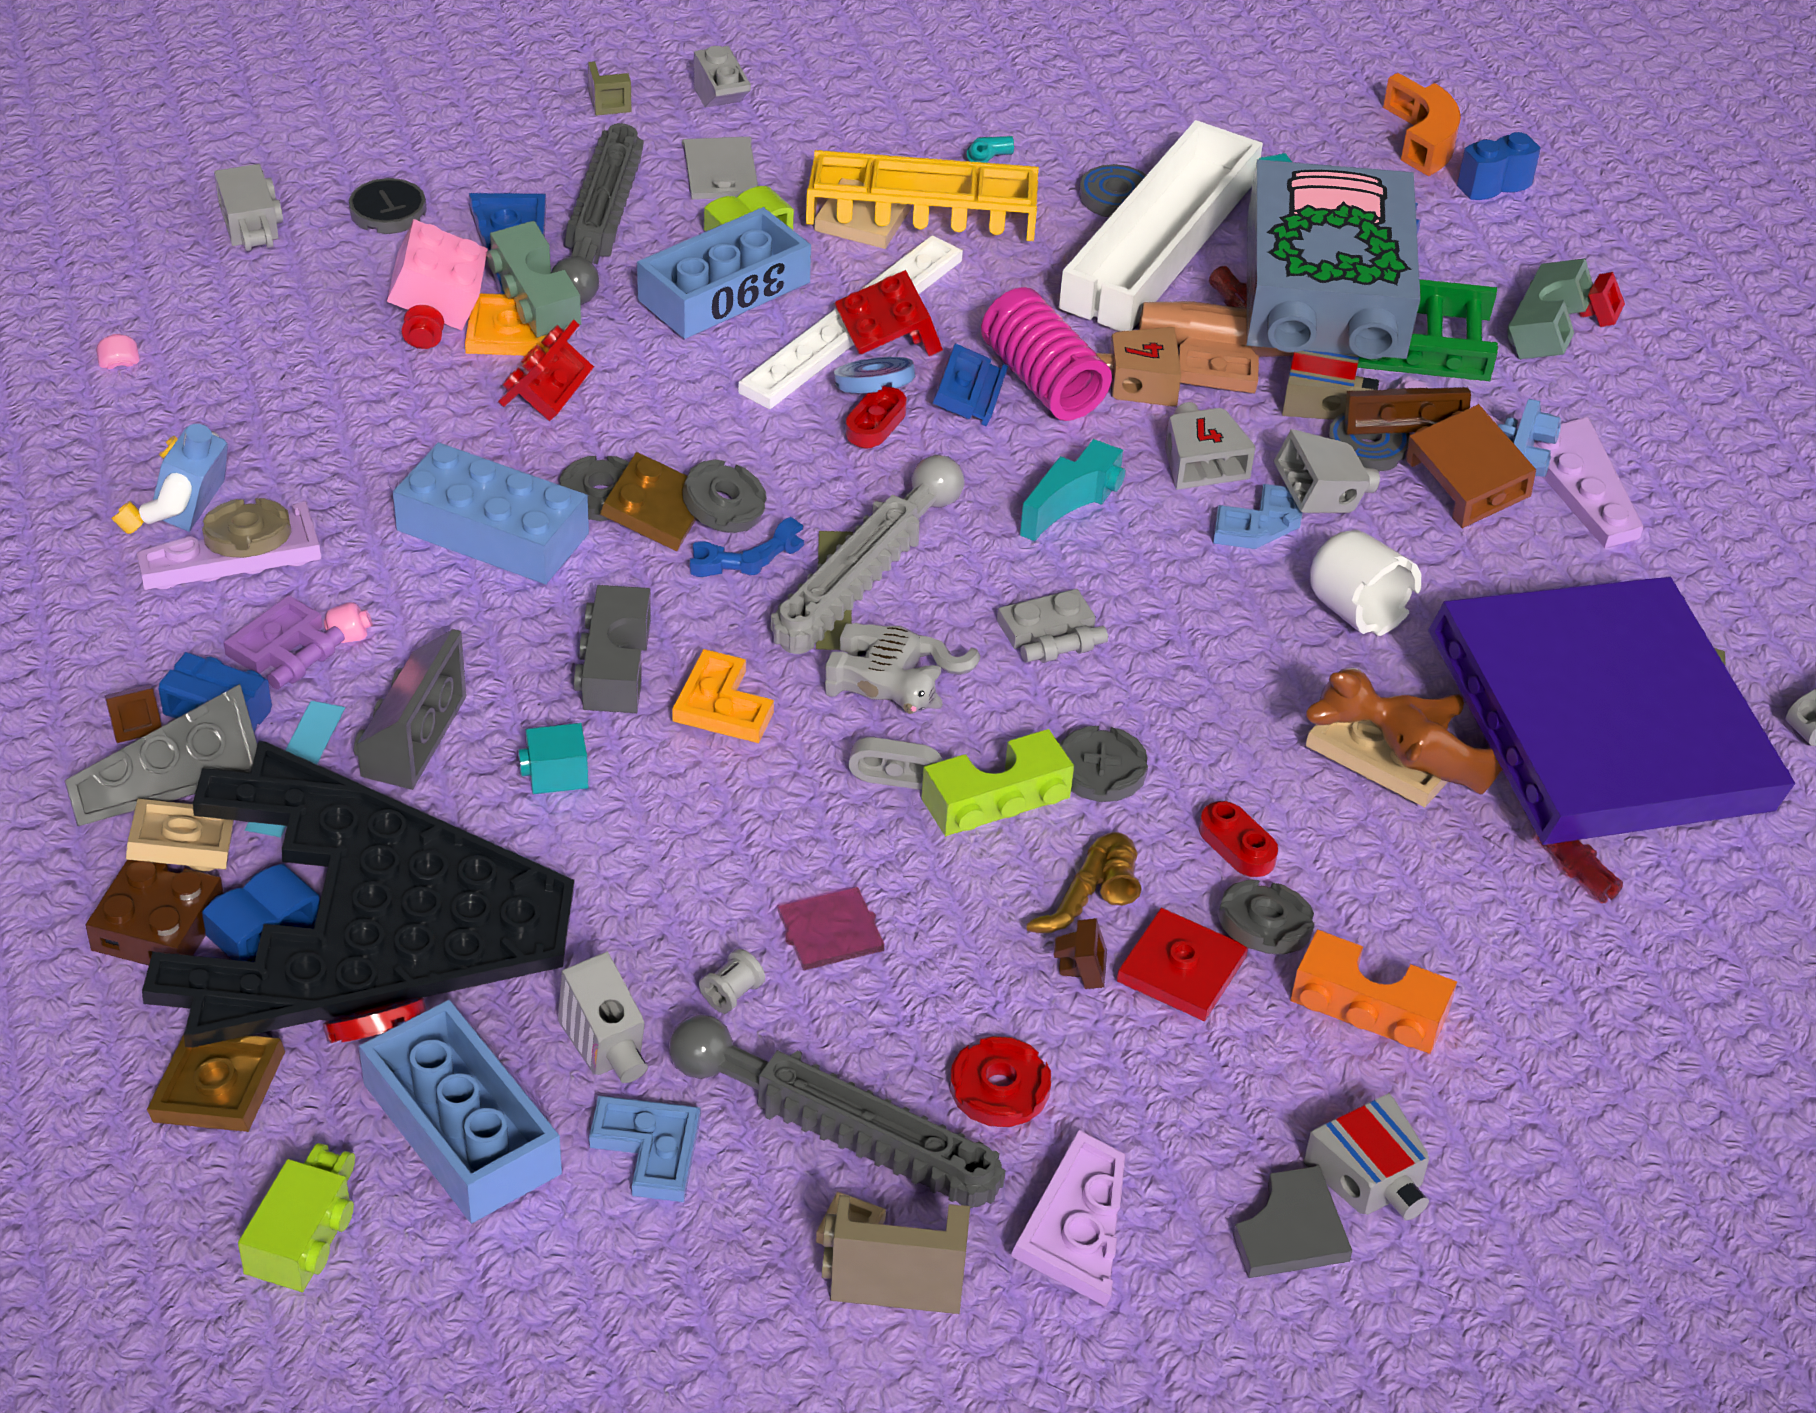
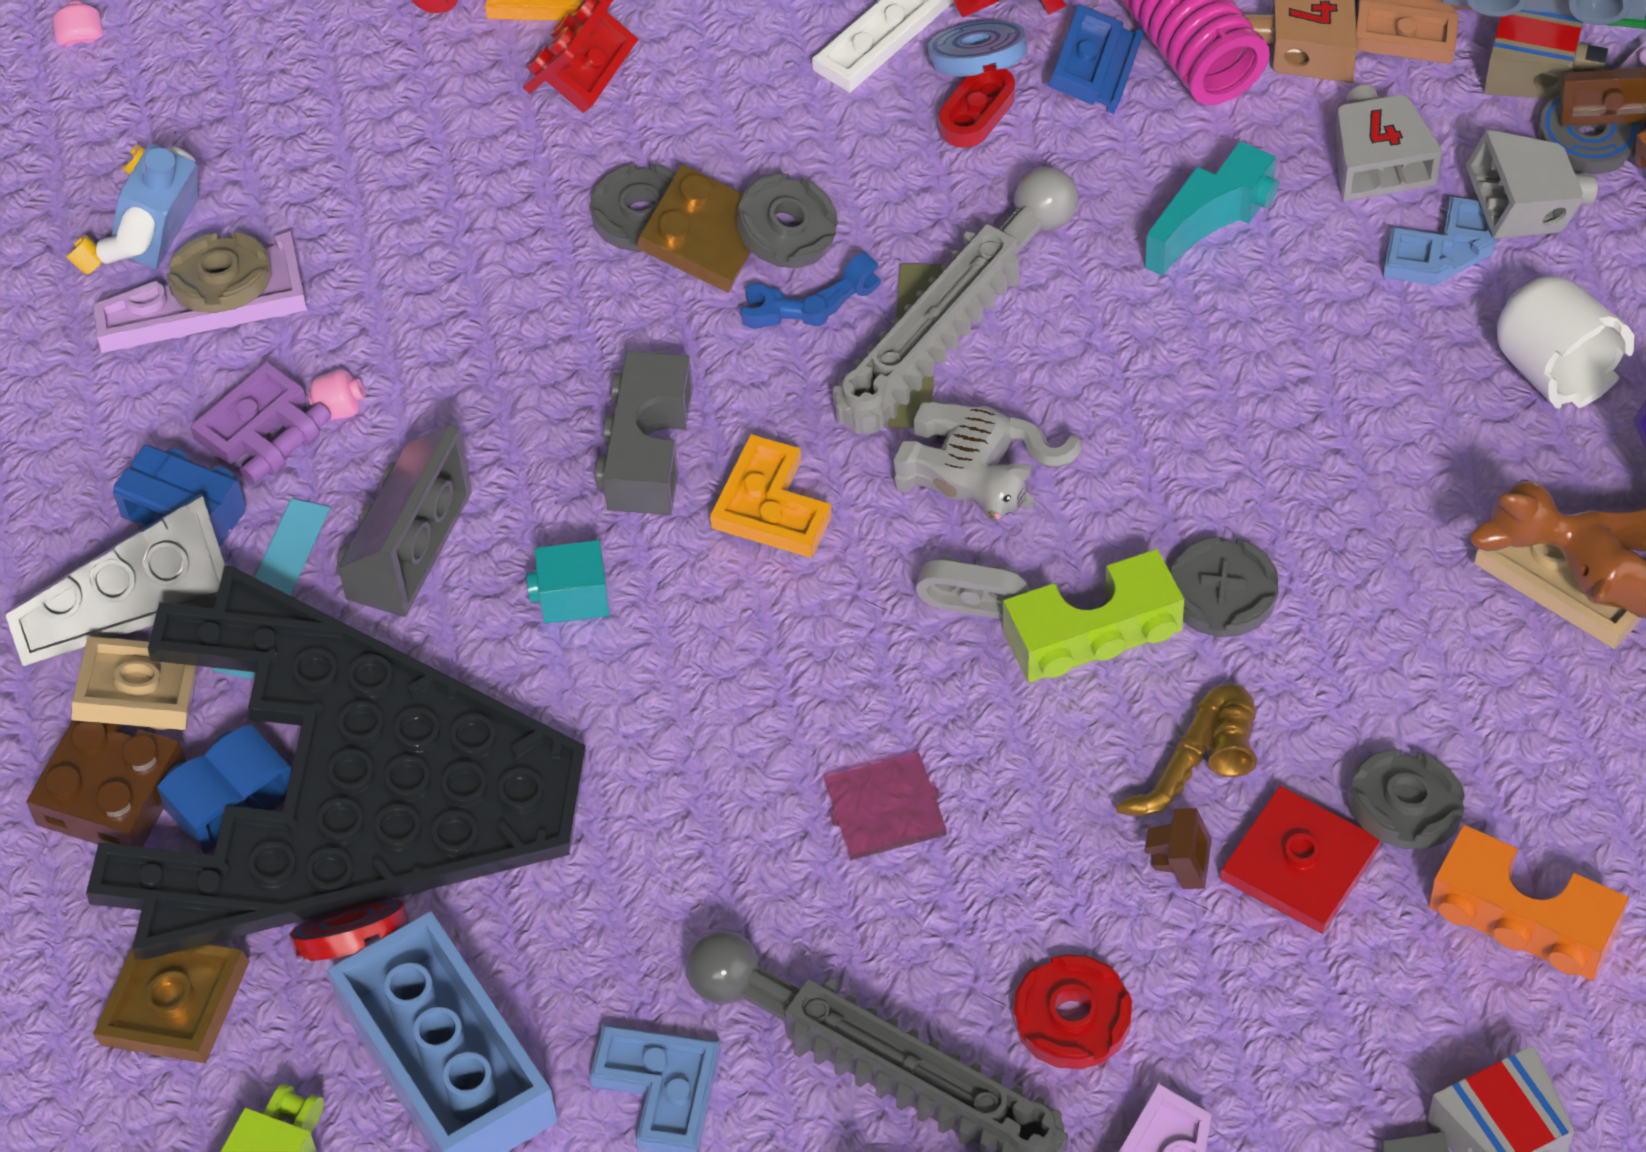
camera: 10 degrees right, 10 degrees up
(133, 713) = (85, 521): reddish brown tile -> none
(491, 512) = (507, 247): medium blue brick -> none
(602, 1018) = (609, 932): light grey torso -> none
(732, 981) = (763, 878): light grey bush -> none
(1051, 626) = (1173, 386): light grey plate -> none
(1233, 834) = (1377, 687): red plate -> none

